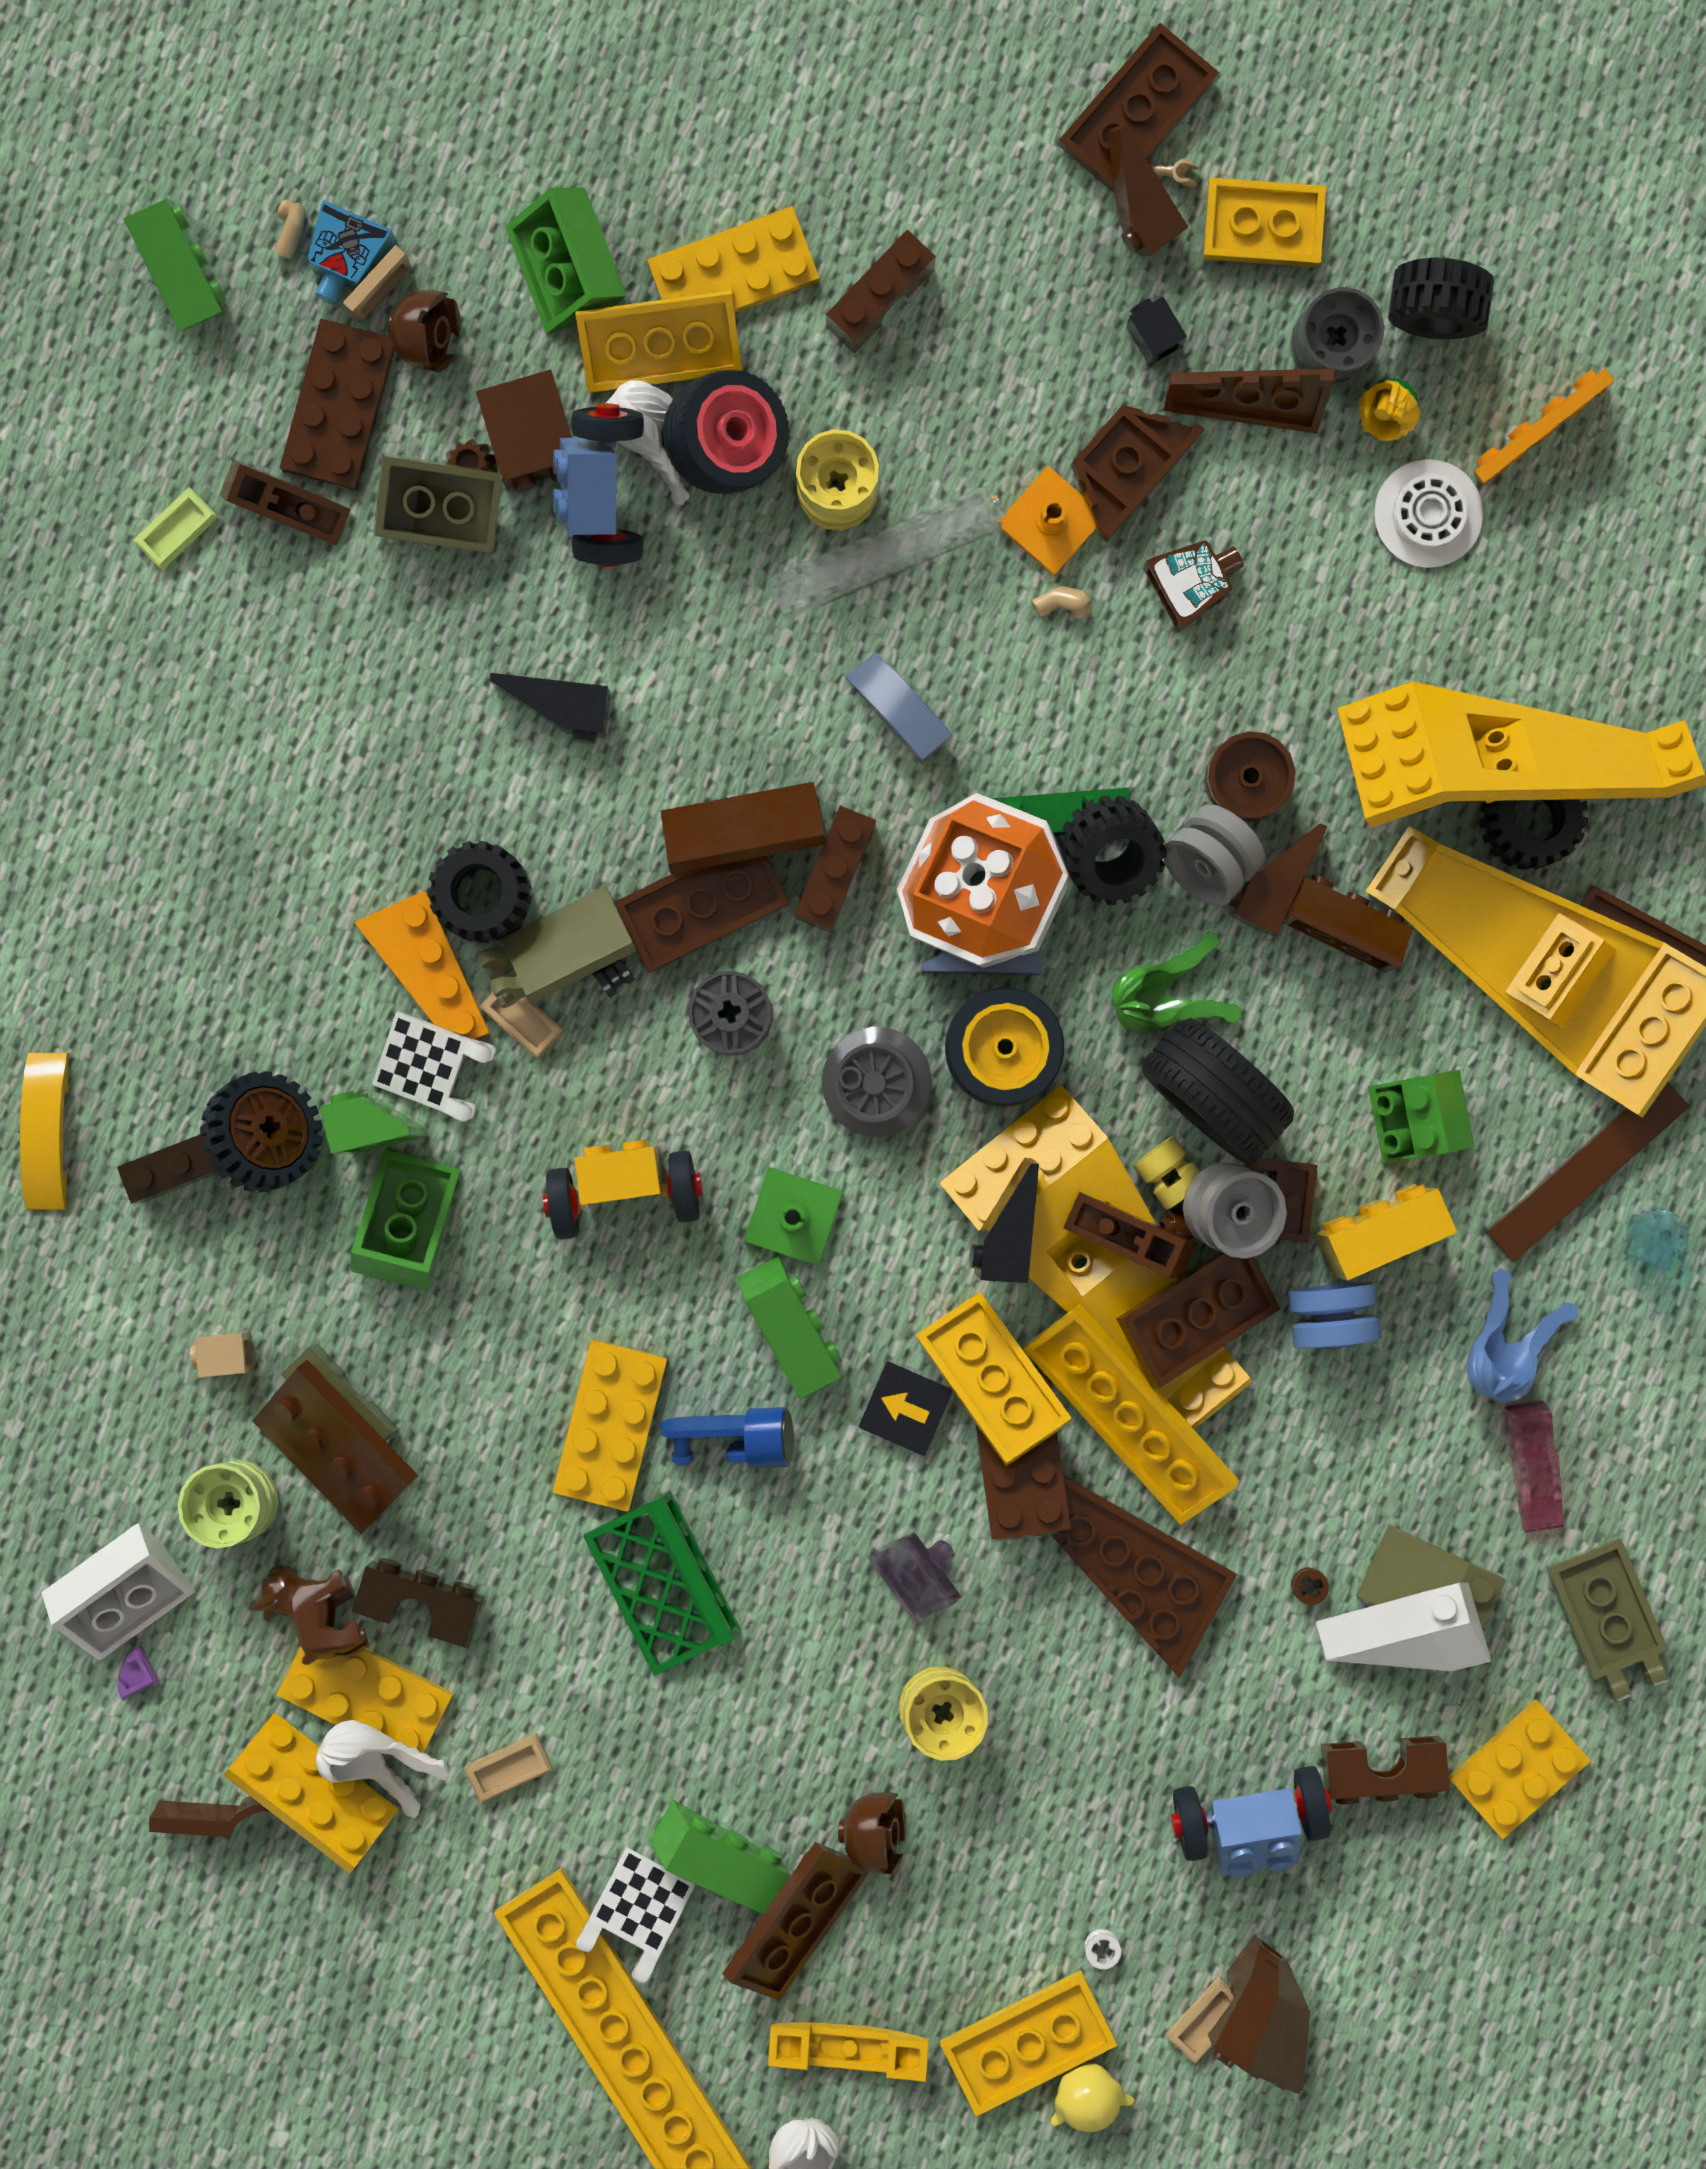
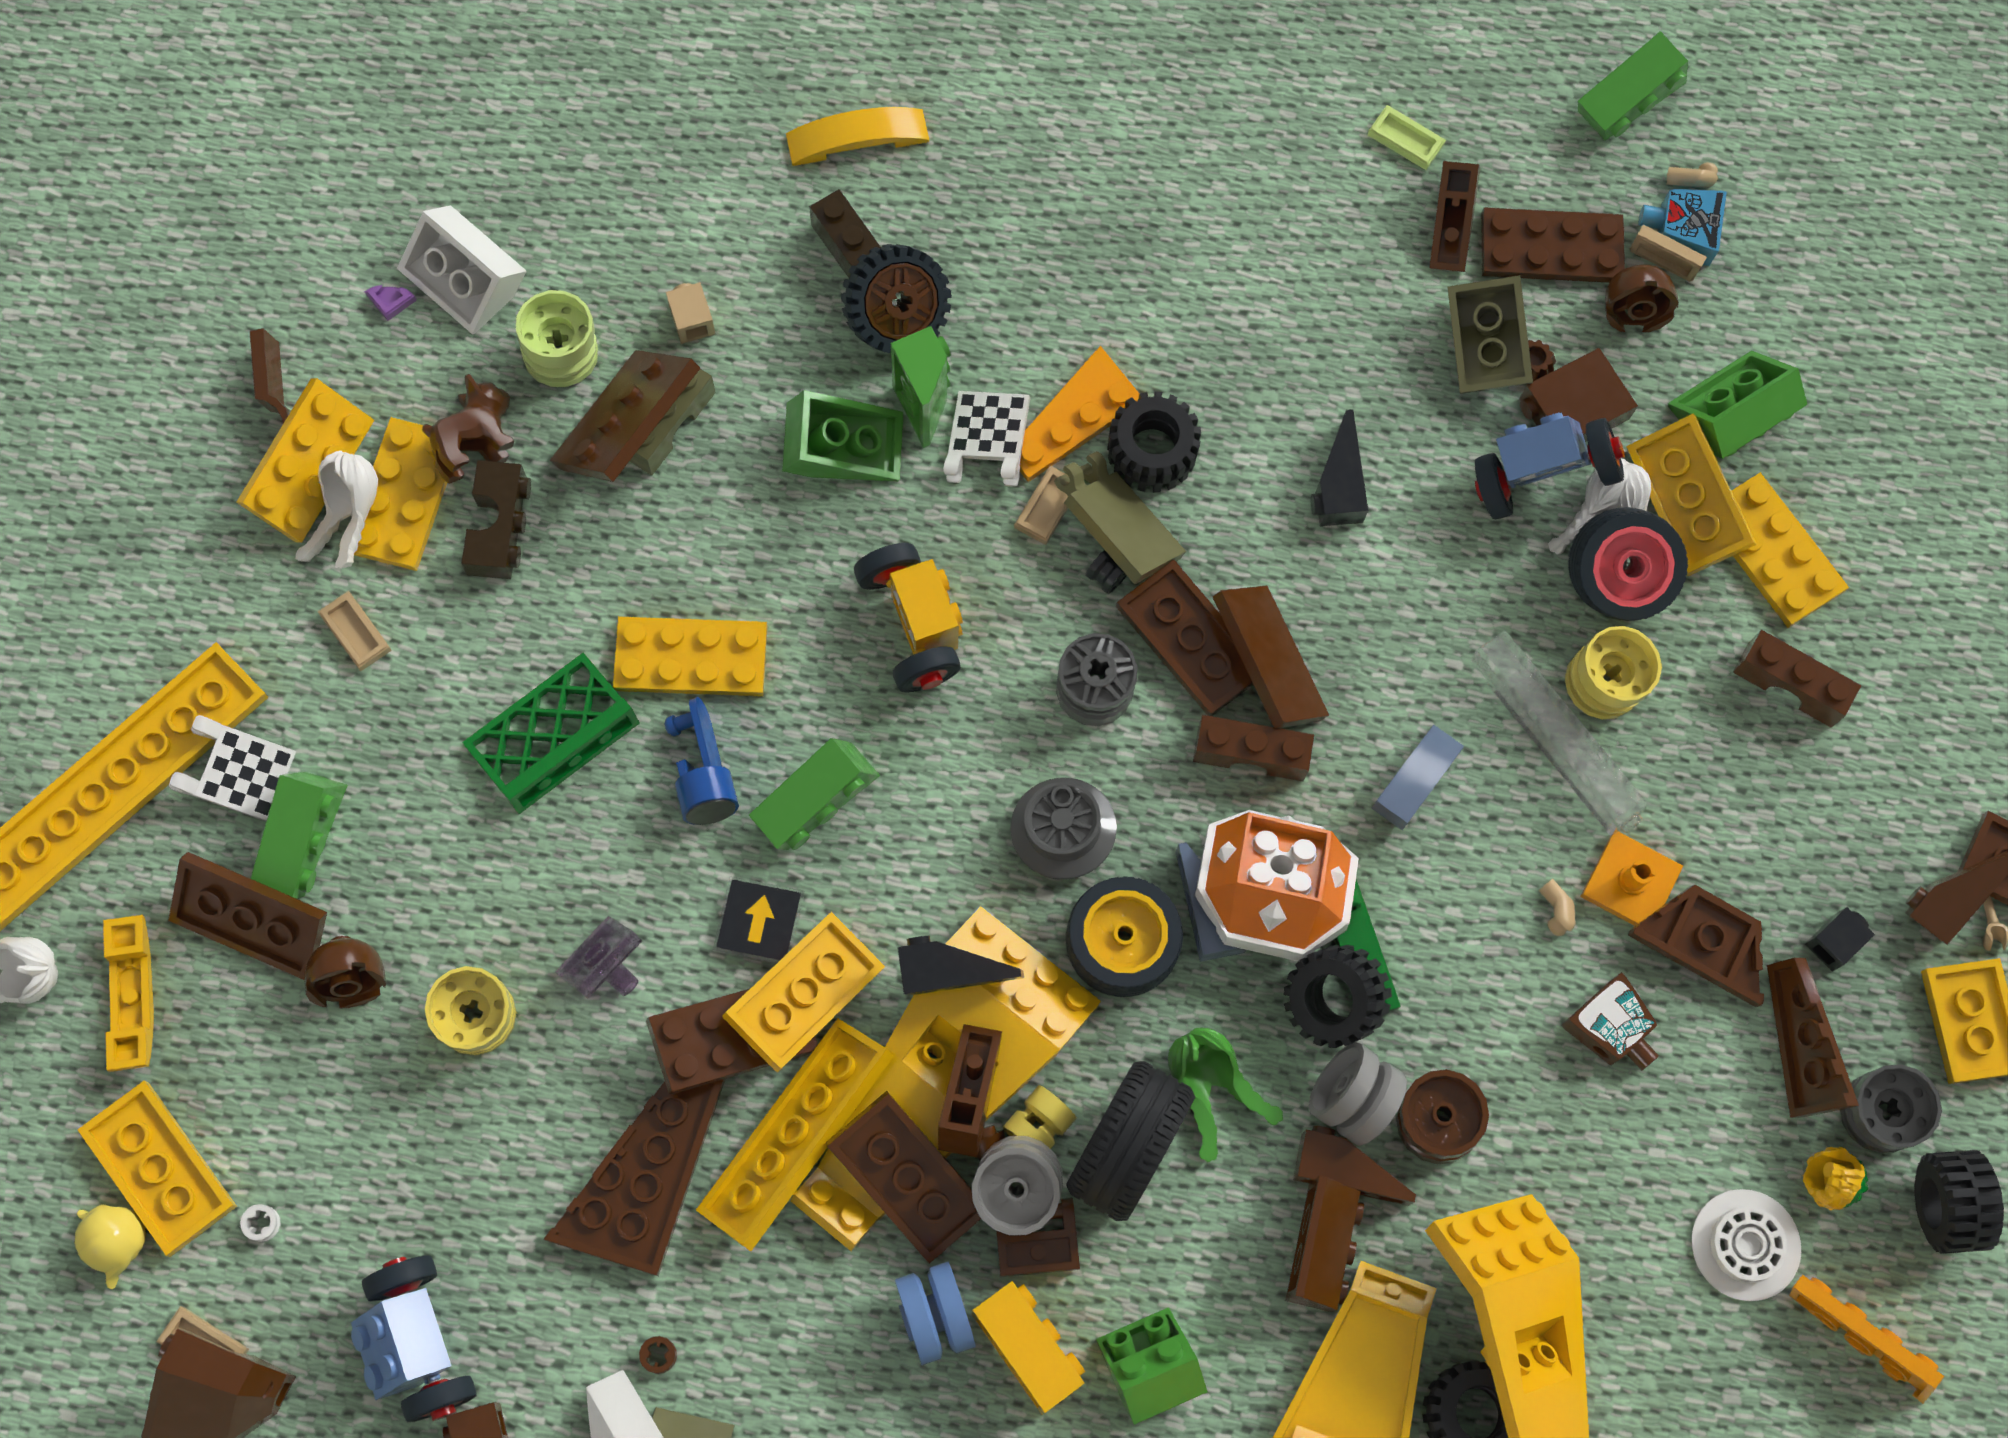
camera: 70 degrees right, 15 degrees down
(793, 1216) = (919, 780): bright green tile -> none

